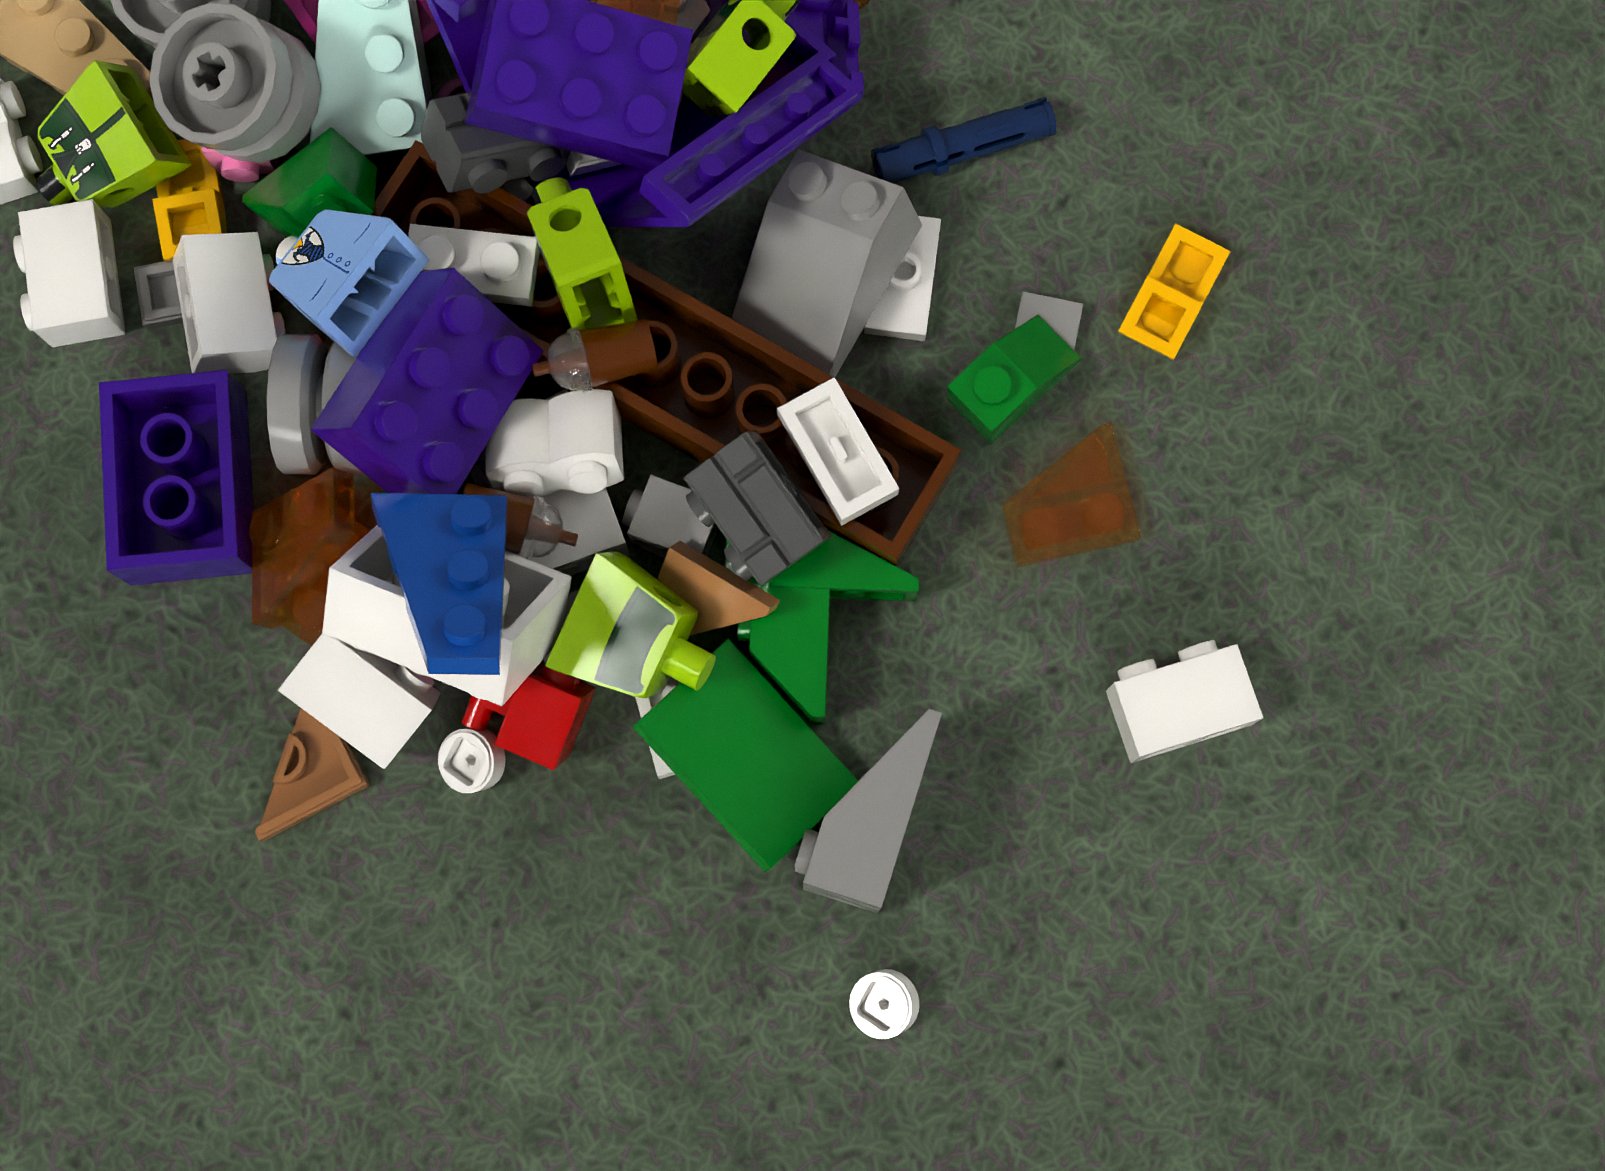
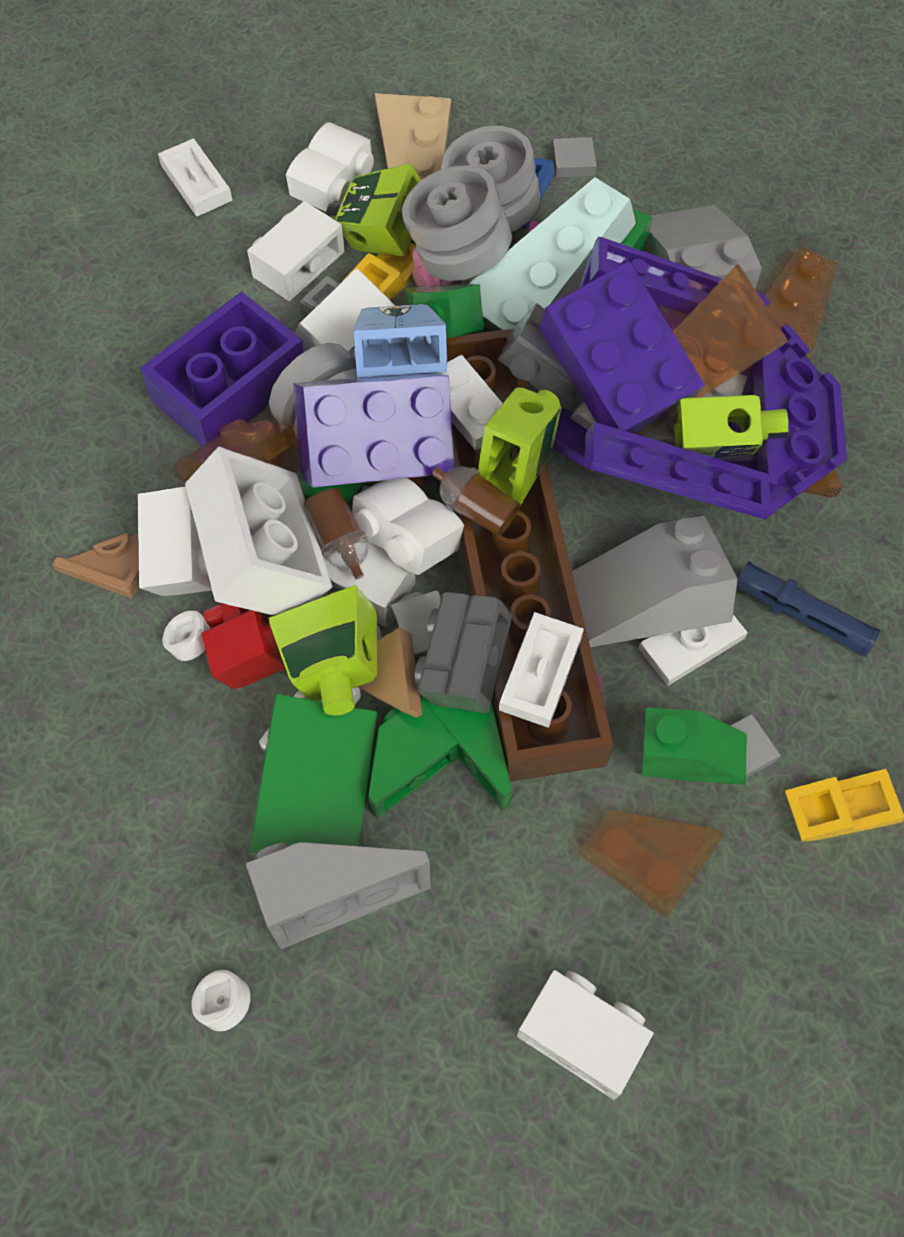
camera: 50 degrees right, 15 degrees down
(450, 574) = (265, 507): blue wing -> none

